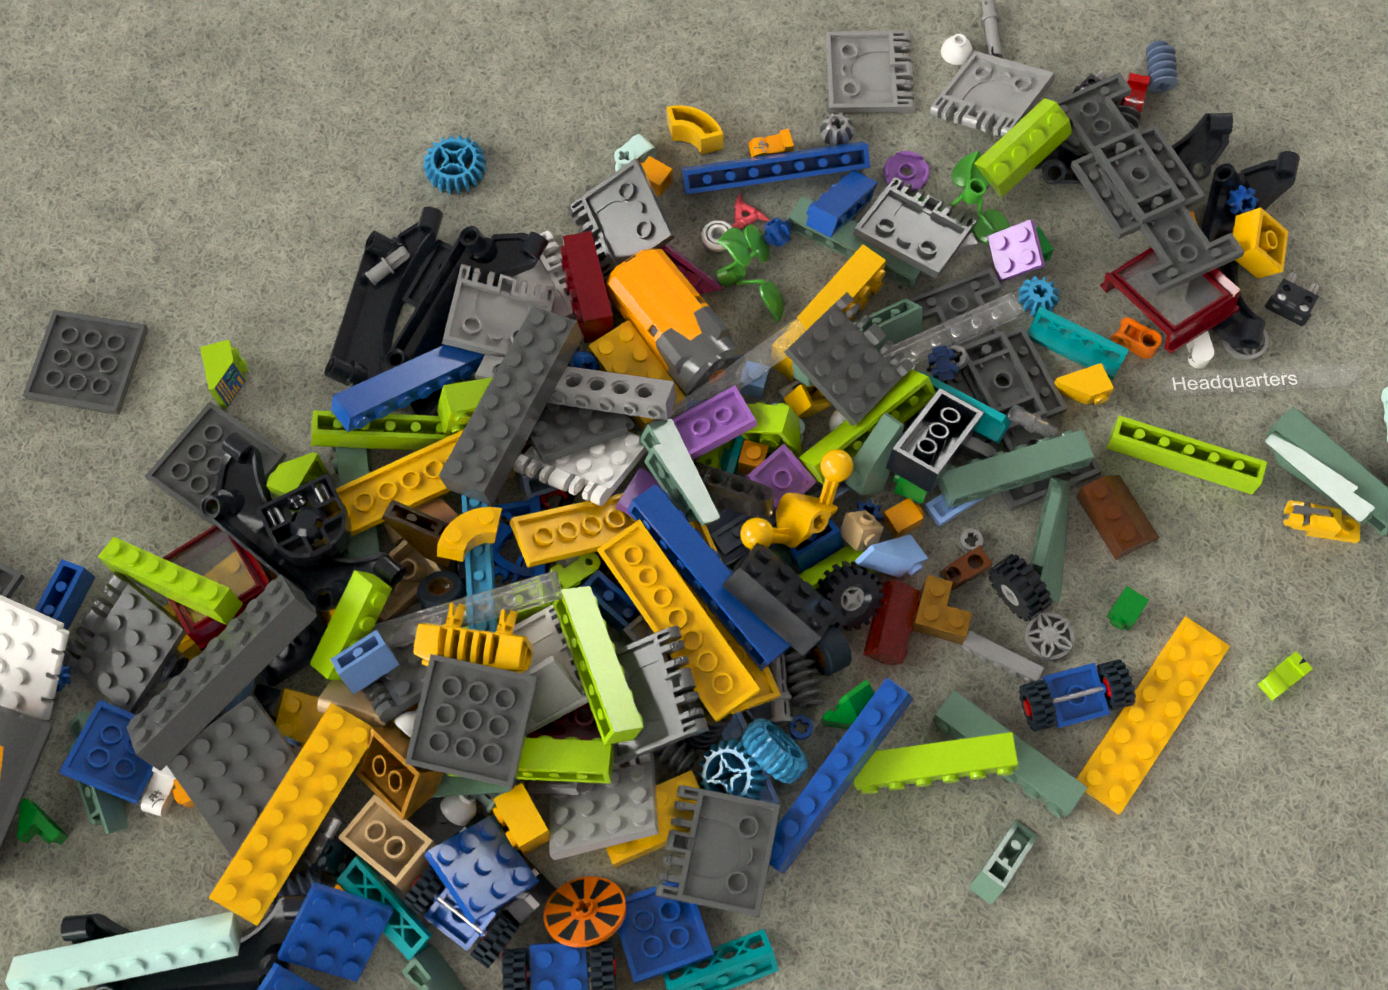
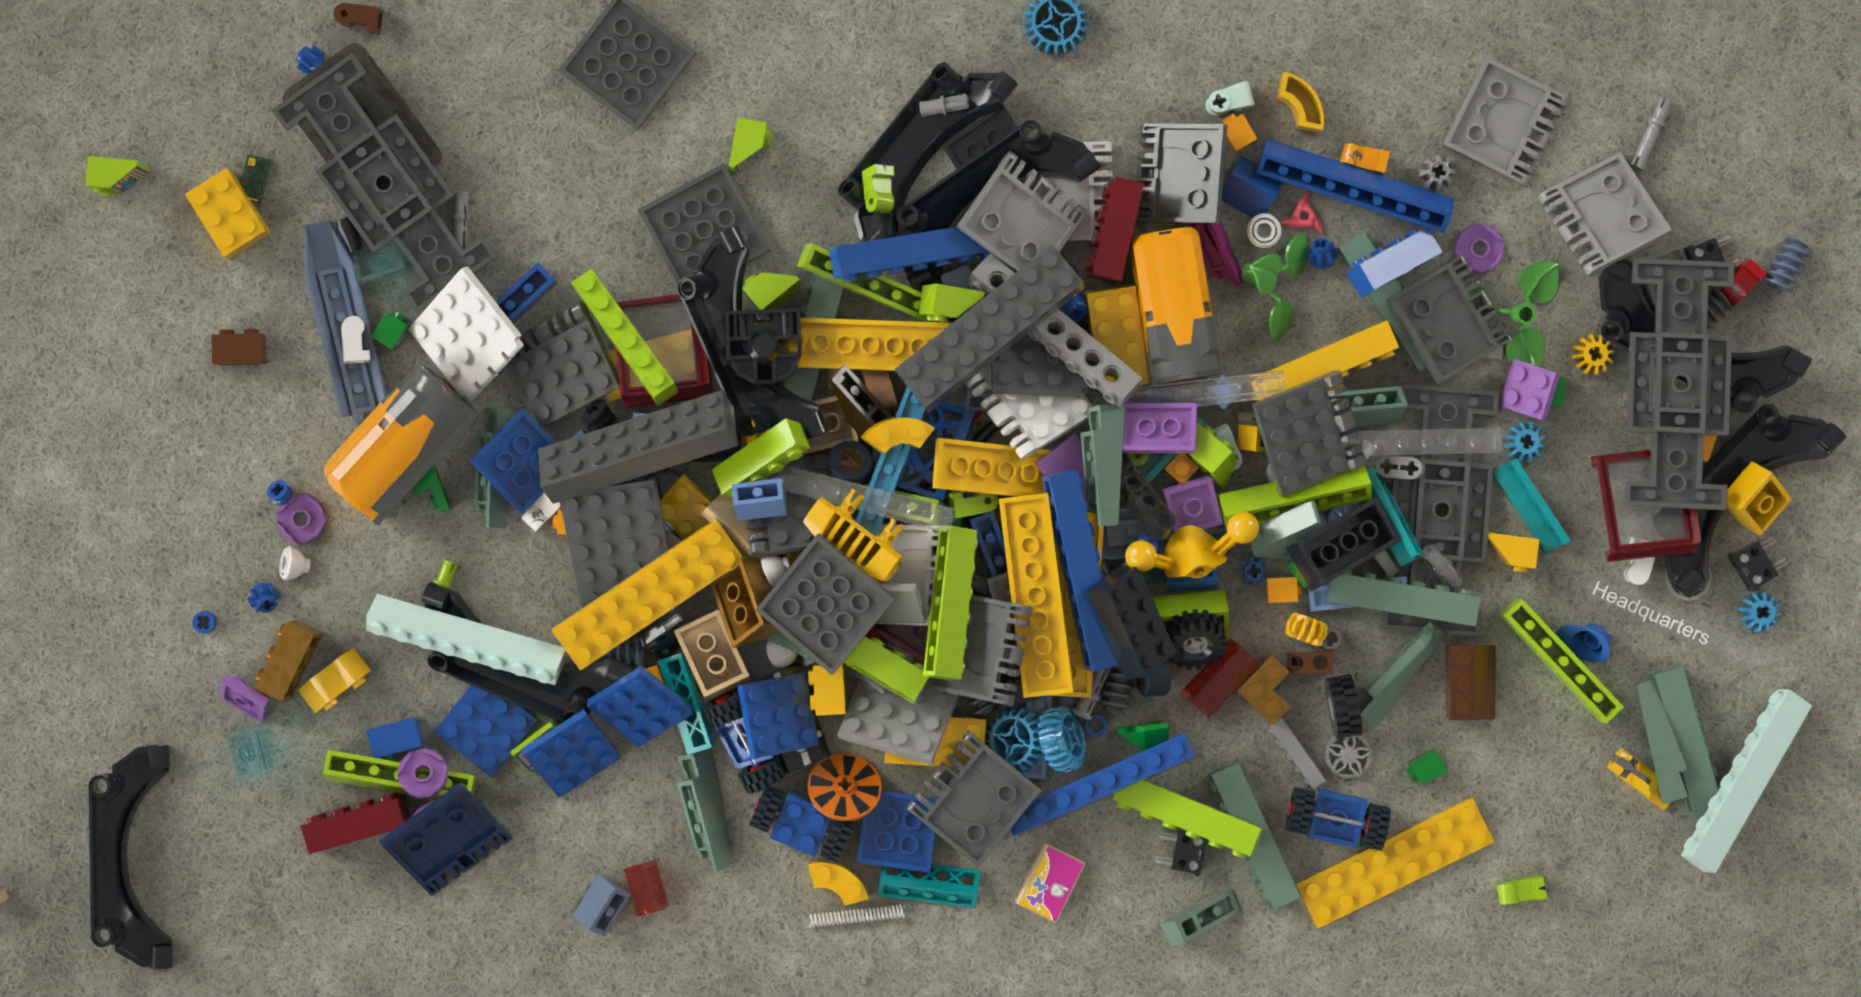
camera: 25 degrees right, 20 degrees up
(85, 901) = (446, 574): none -> lime pin
(358, 352) = (878, 188): none -> lime leg
(688, 213) = (1248, 190): none -> blue slope
(838, 904) = (1050, 882): none -> piece
(861, 530) = (1236, 588): tan brick -> none
(894, 557) = (1254, 625): light blue slope -> none
(941, 357) = (1396, 466): dark blue piece -> none
(945, 539) = (1306, 629): none -> yellow gear
(956, 49) = (1604, 139): white brick -> none
(957, 803) = (1190, 852): none -> black piece
(1024, 146) = (1596, 290): lime slope -> none
(1050, 204) = (1585, 358): none -> yellow gear
(1136, 337) = (1588, 526): orange piece -> none
(1200, 425) = (1587, 641): none -> blue piece
(1242, 194) = (1767, 449): blue gear -> none
(1324, 334) = (1760, 601): none -> dark azure gear

